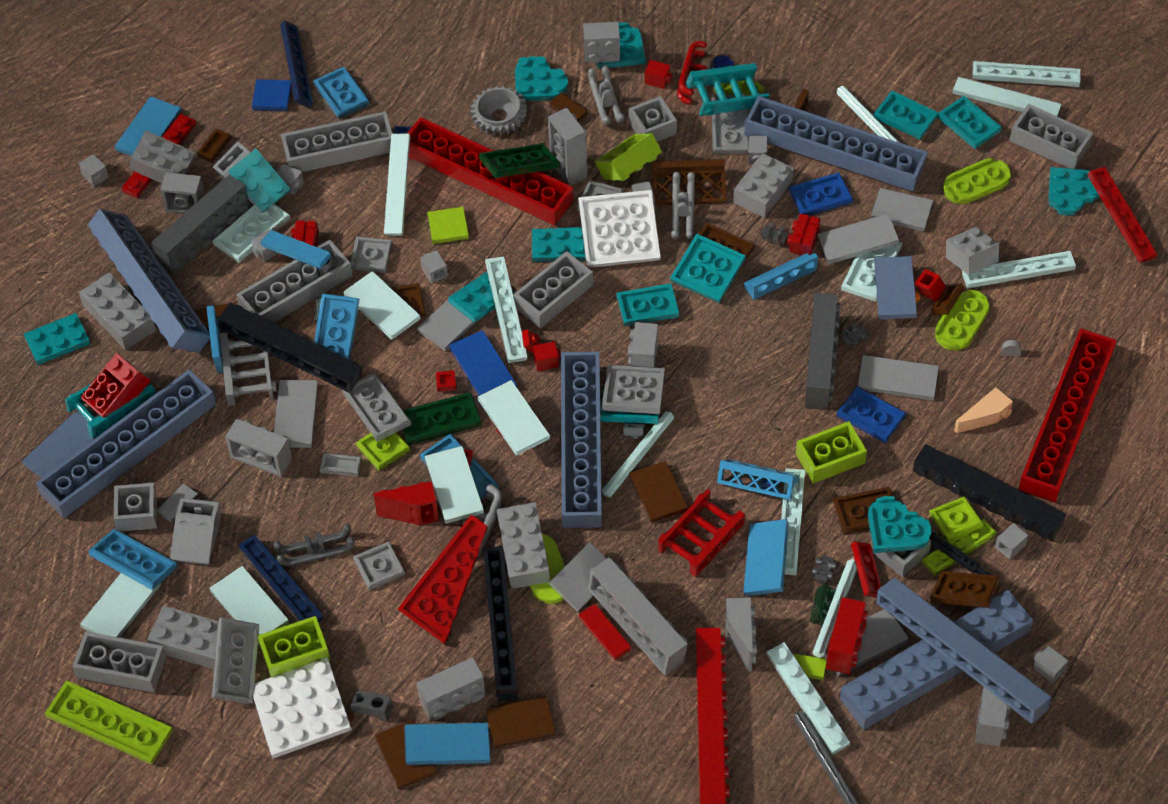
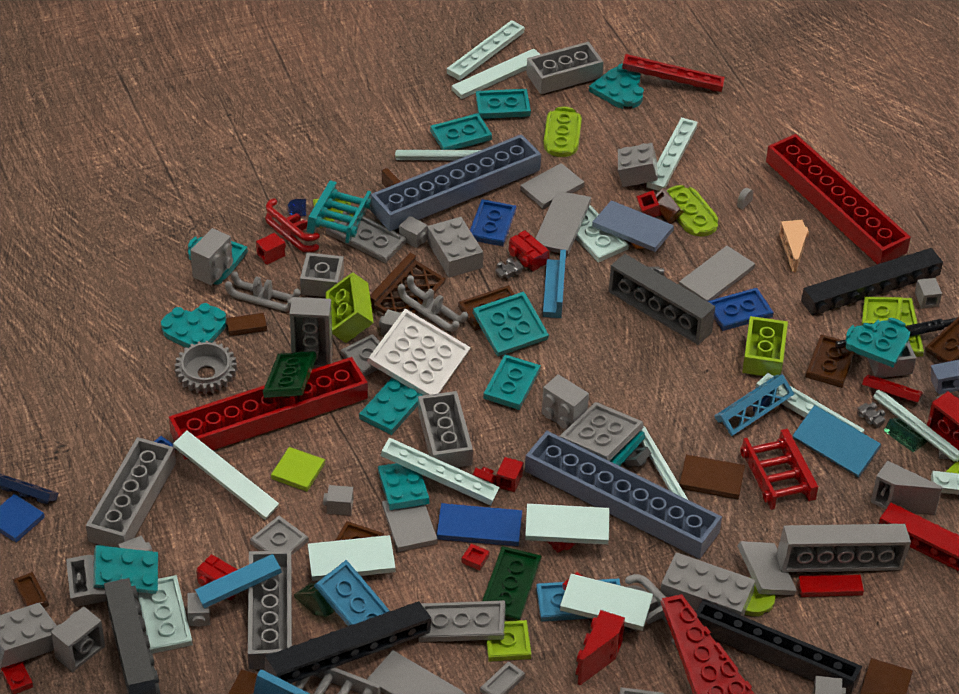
camera: 60 degrees left, 10 degrees down
(341, 92) = (65, 466): dark azure tile -> none

